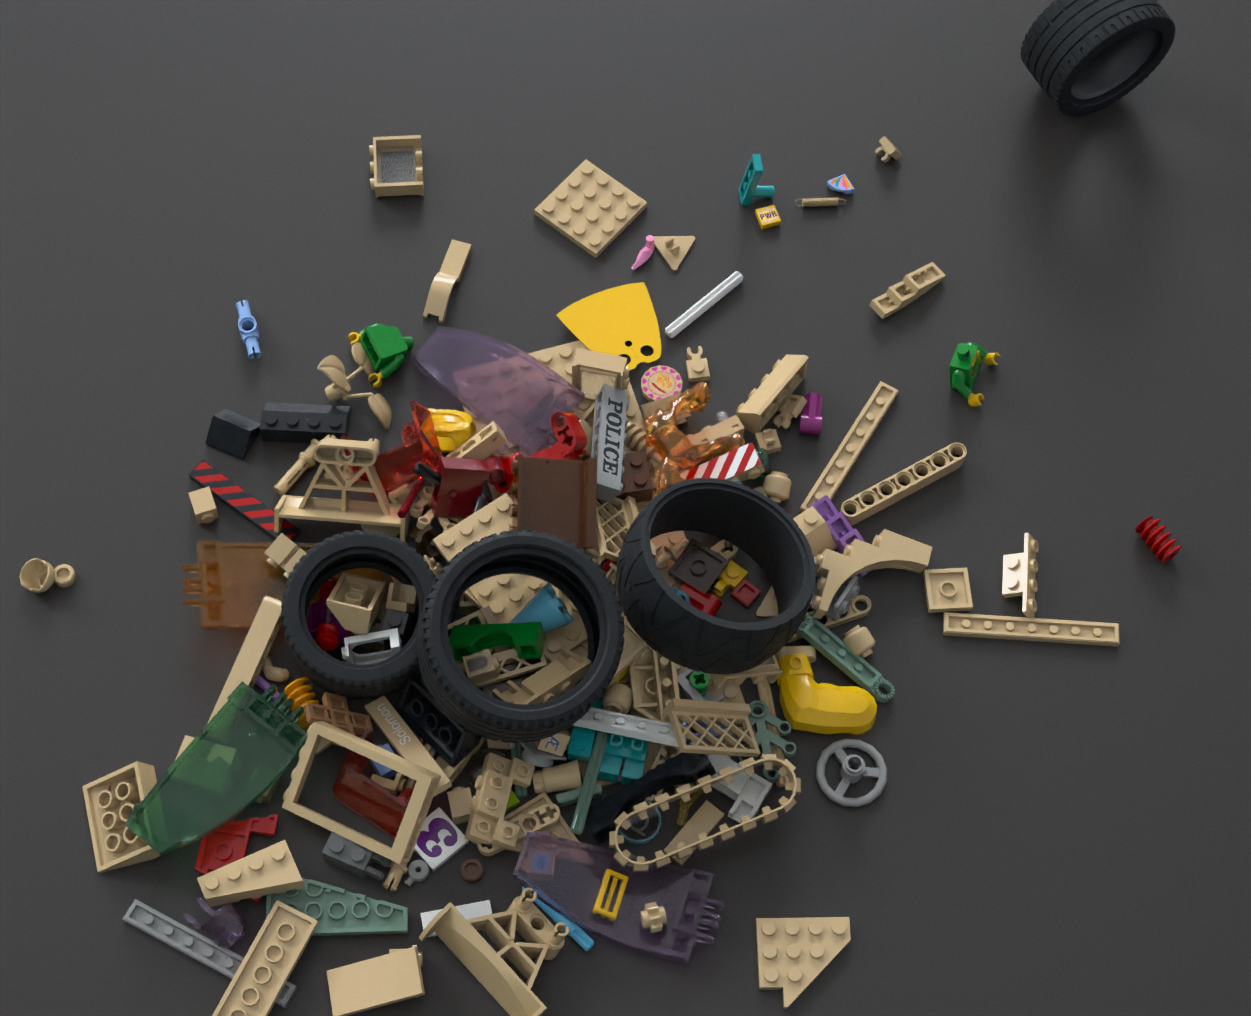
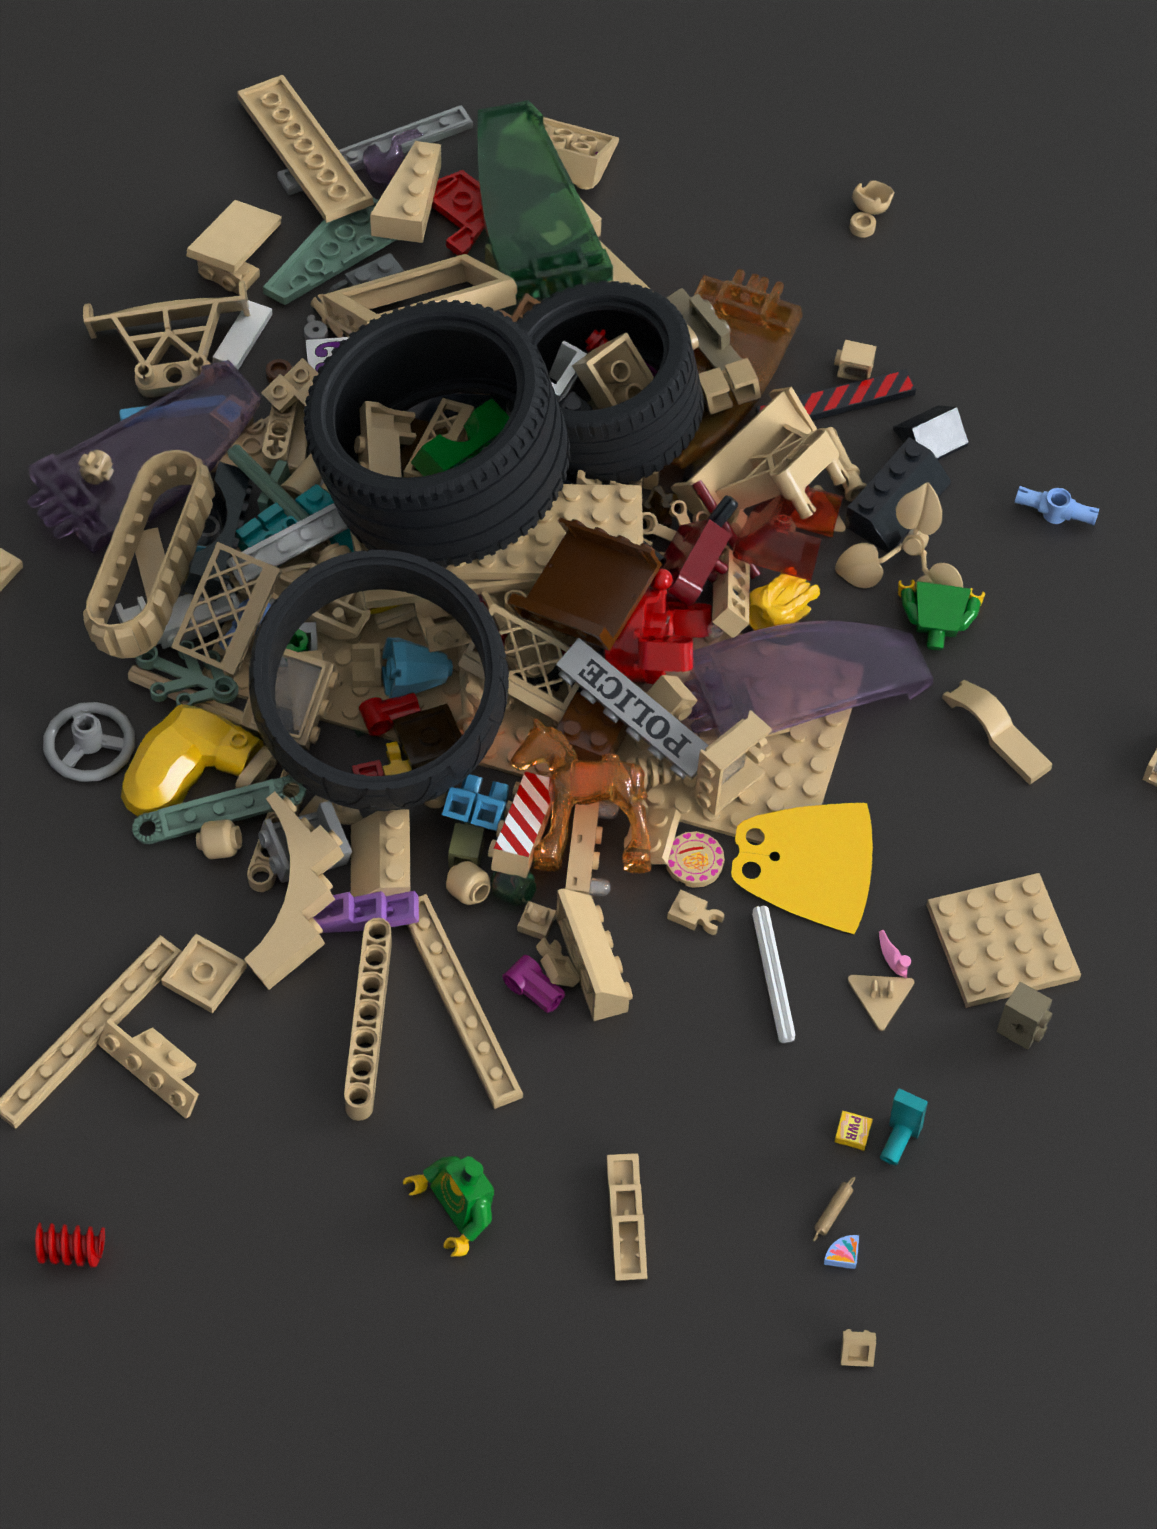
camera: 125 degrees right, 5 degrees down
(249, 601) = (711, 331): none -> dark tan bracket
(481, 666) = (447, 414): brick -> none
(604, 912) = (138, 437): yellow tile -> none
(640, 164) = (1025, 1016): none -> dark tan brick

